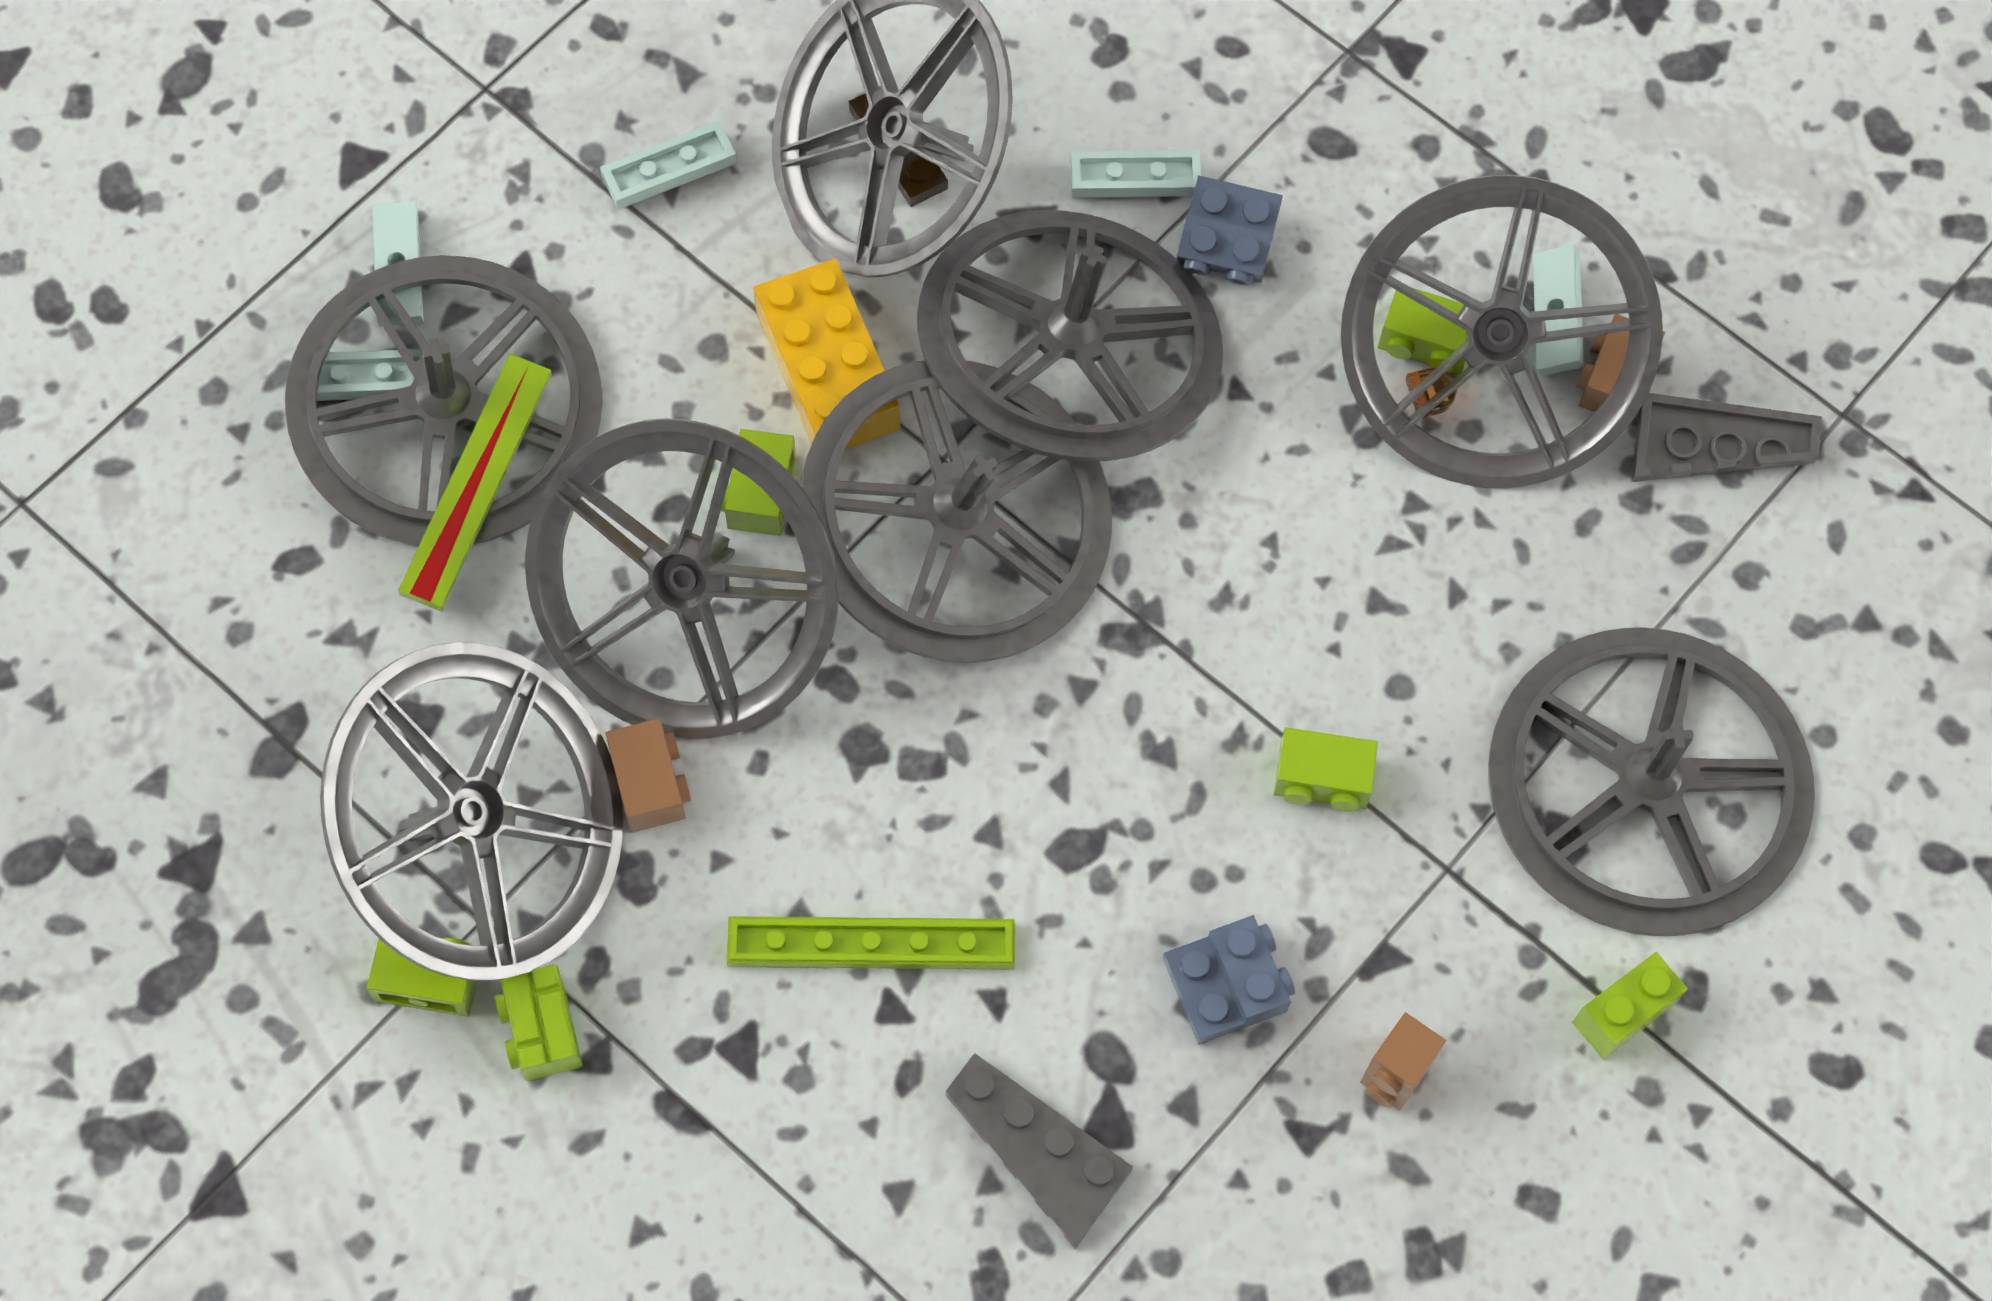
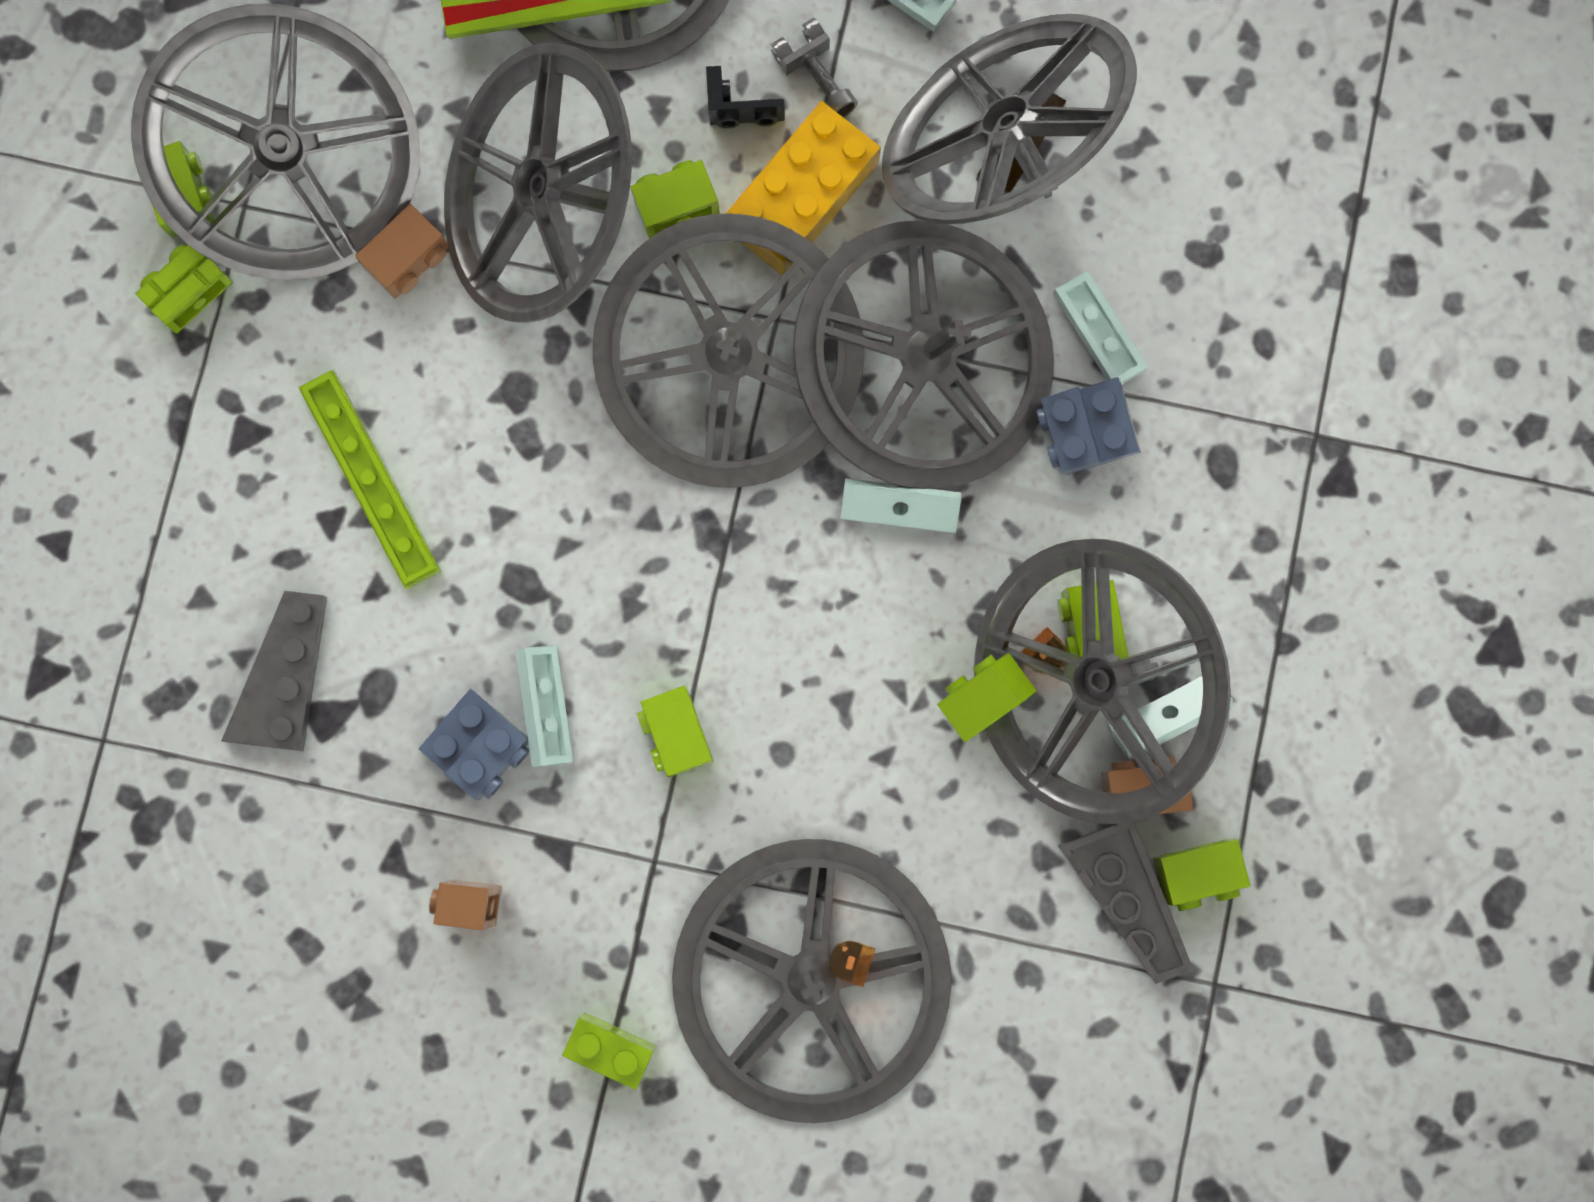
camera: 60 degrees right, 15 degrees up
(672, 267) = (818, 42): none -> flat silver bar
(676, 386) = (731, 114): none -> black bracket
(1209, 439) = (923, 508): none -> light aqua tile
(1225, 886) = (544, 706): none -> light aqua plate
(1452, 454) = (986, 697): none -> lime brick
(1652, 719) = (851, 961): none -> clear orange tile
(1729, 359) = (1202, 873): none -> lime brick

